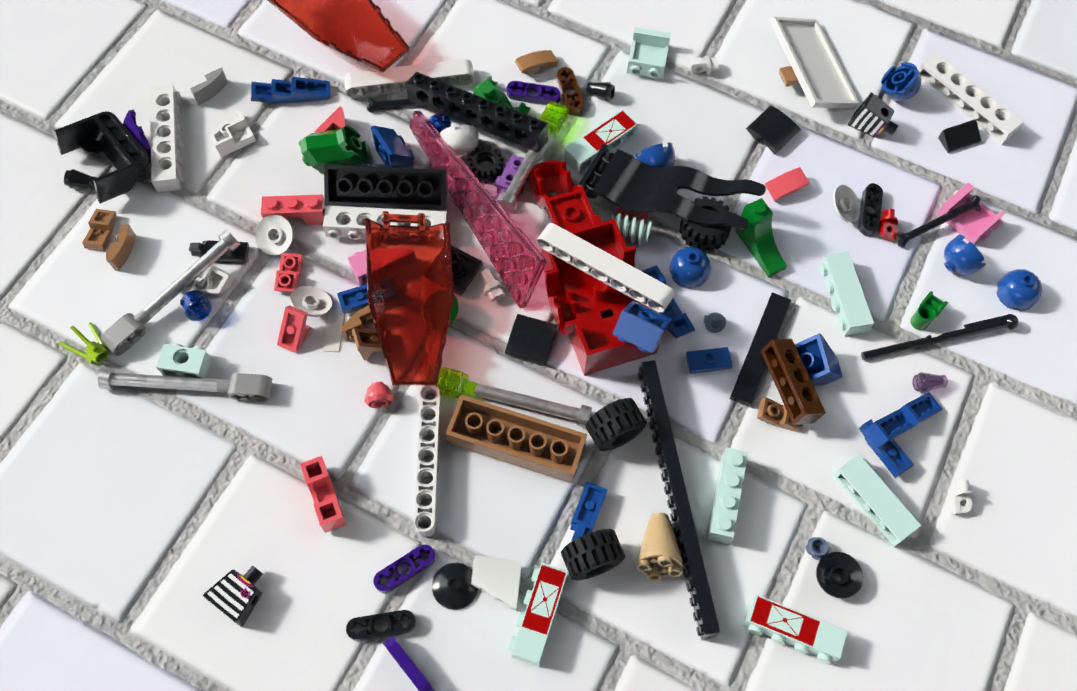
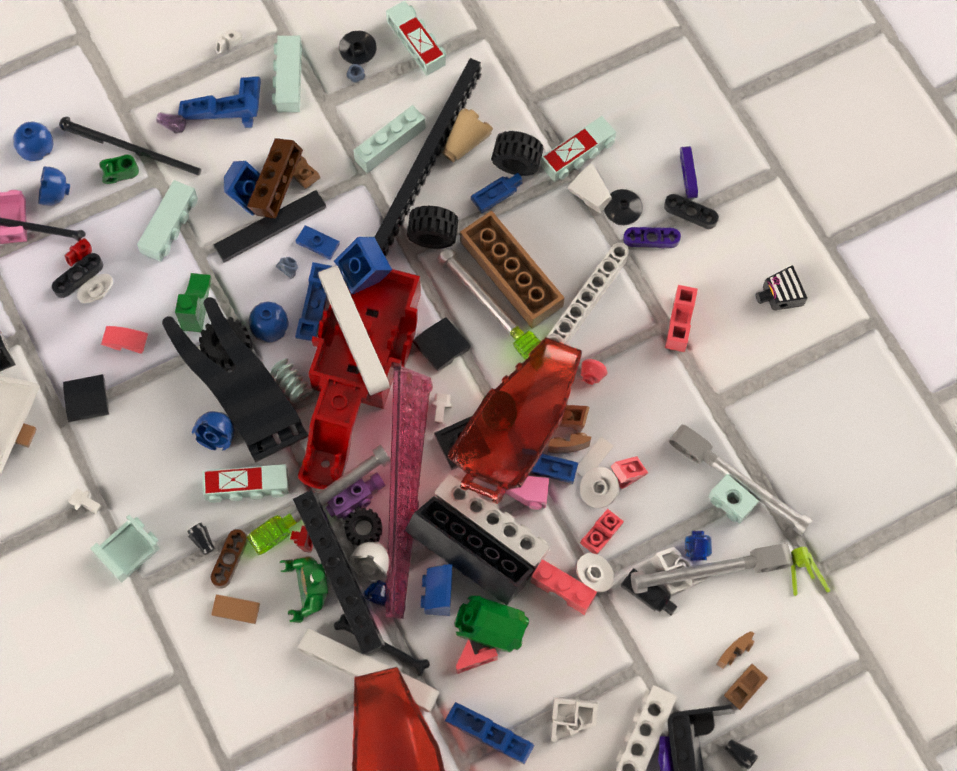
camera: 145 degrees left, 5 degrees up
(538, 99) = (278, 585): dark purple beam -> none

